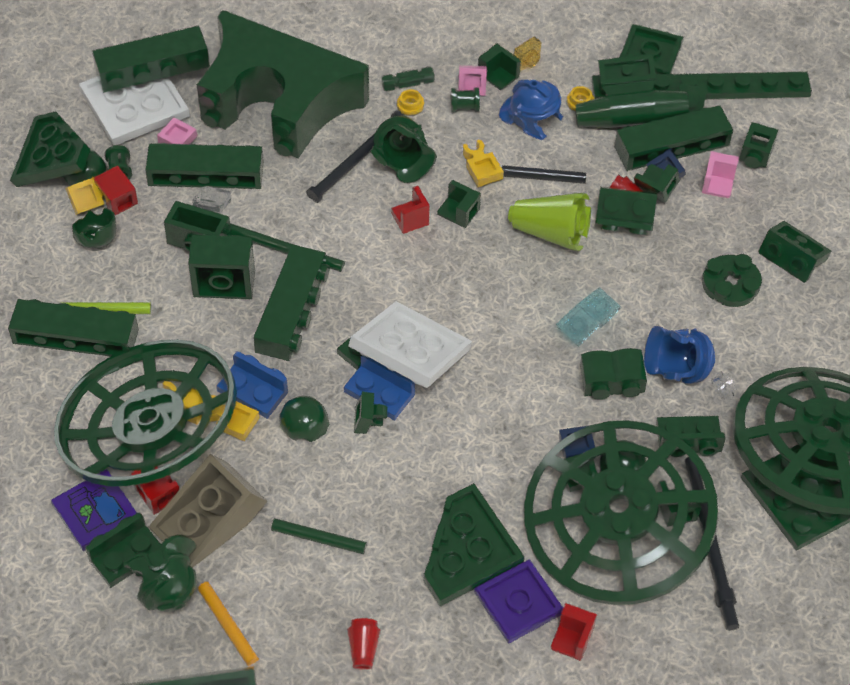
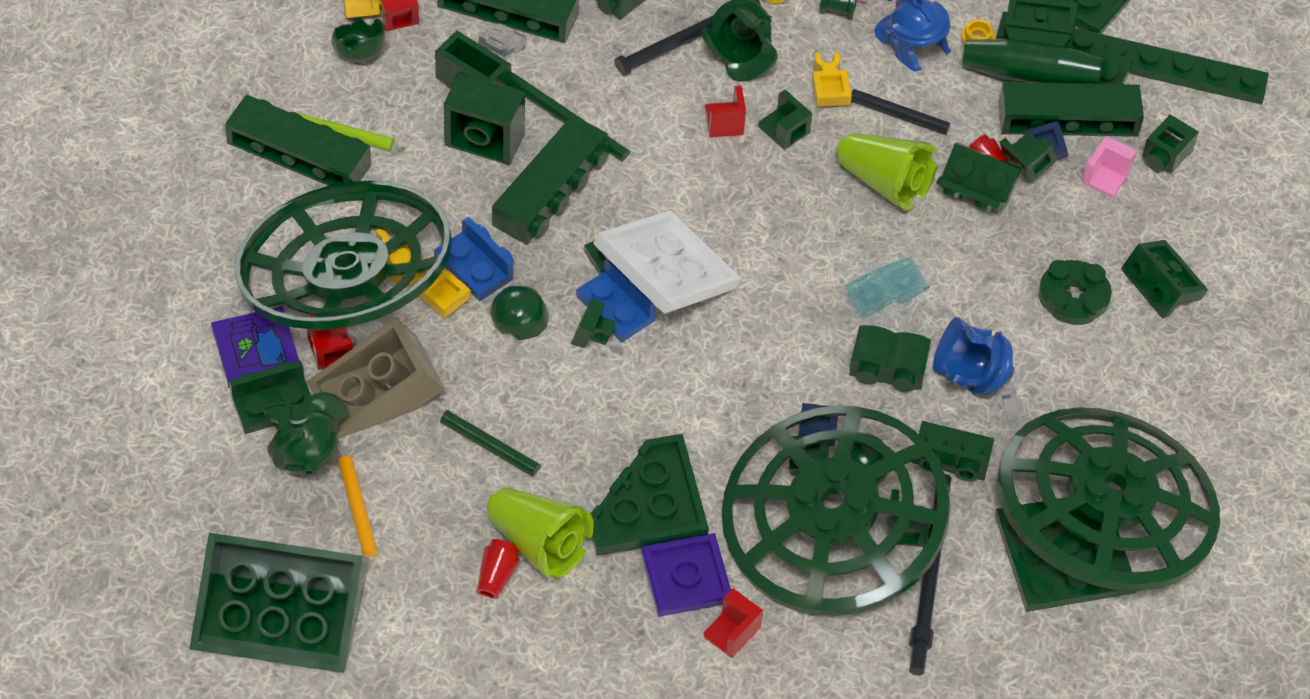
camera: 15 degrees right, 0 degrees up
(389, 597) = (542, 529): none -> lime cone

